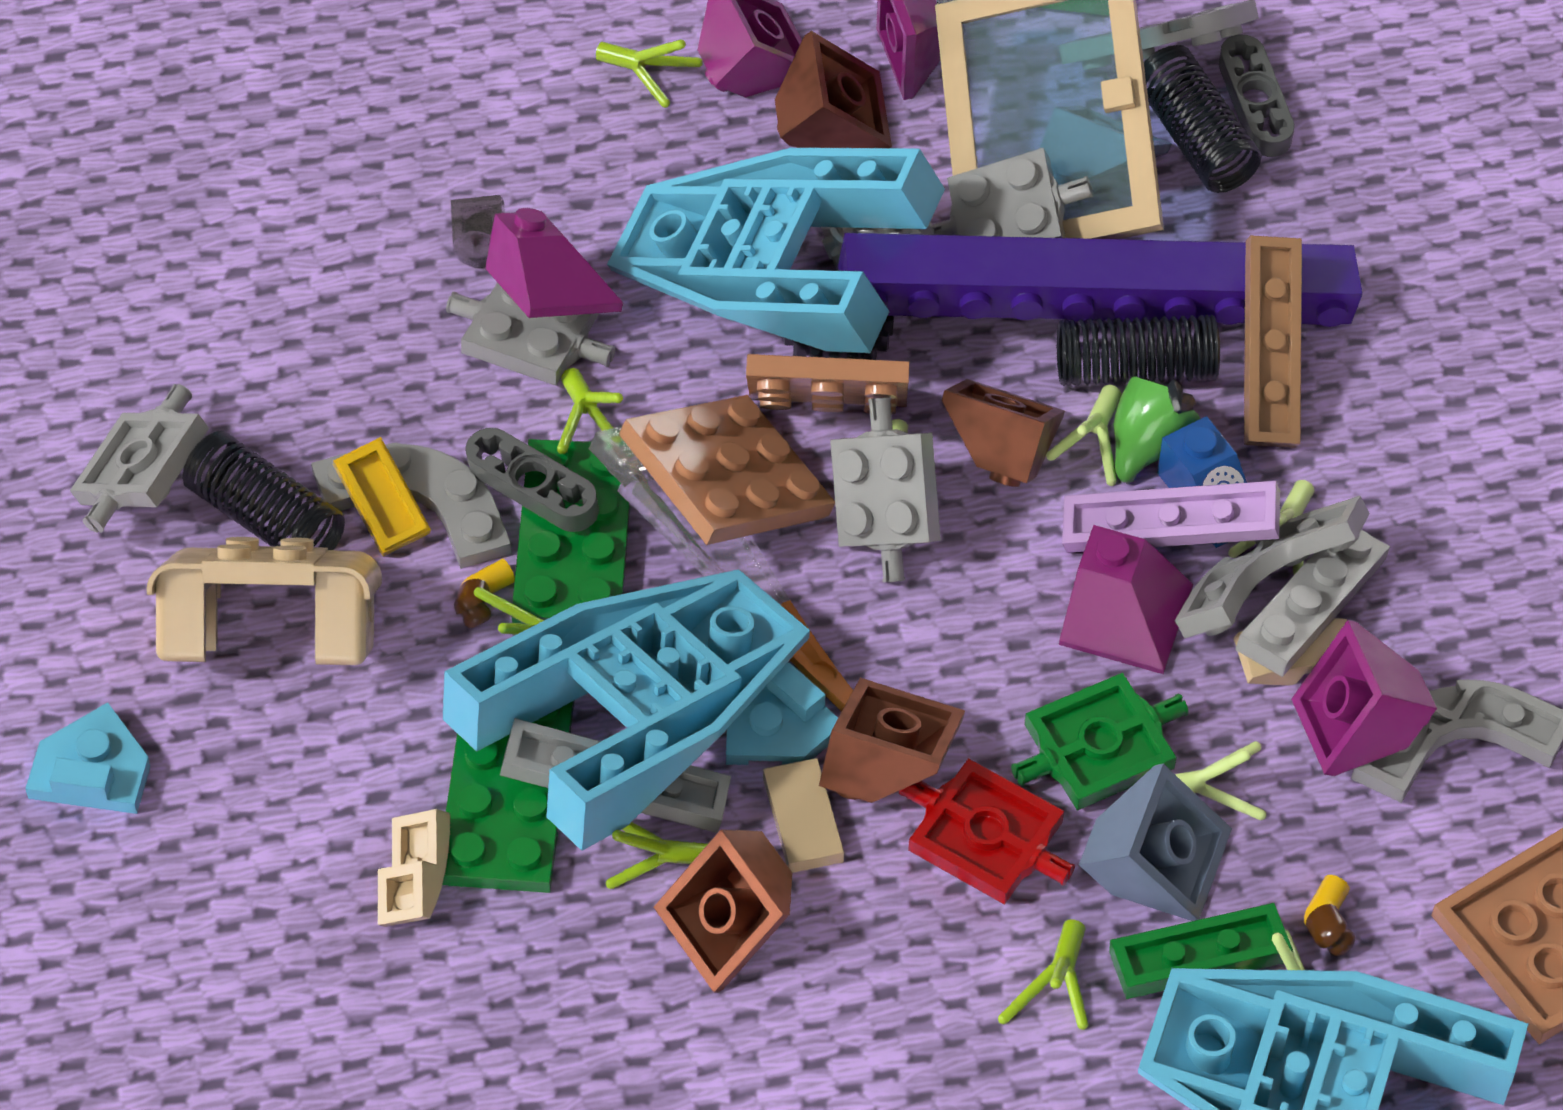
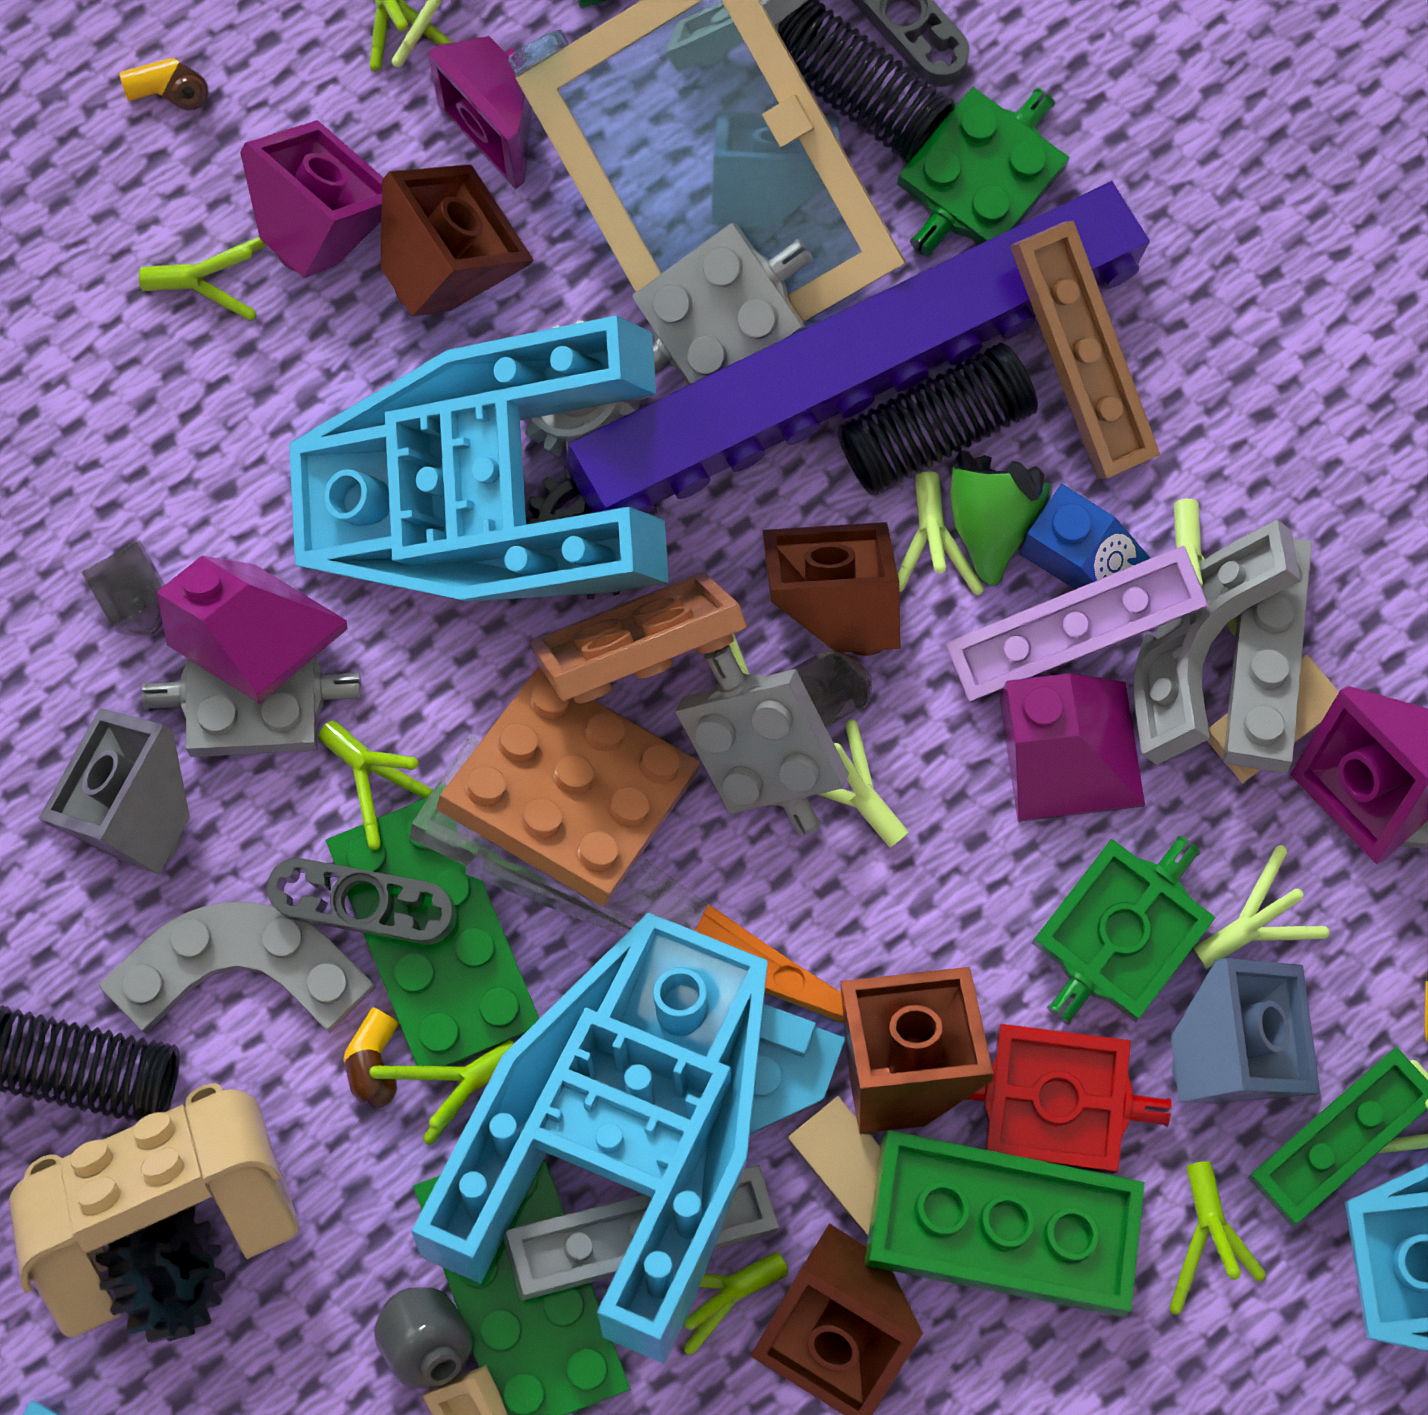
camera: 25 degrees left, 20 degrees up
(251, 643) = (164, 1277): none -> black gear
(381, 496) = (202, 996): yellow tile -> none
(400, 351) = (123, 791): none -> flat silver slope
(414, 775) = (423, 1337): none -> dark grey head
(897, 888) = (1005, 1223): none -> green plate
(948, 572) = (865, 797): none -> yellowish green plant
(962, 490) = (835, 684): none -> clear smoke plate
(1264, 203) = (982, 170): none -> green plate

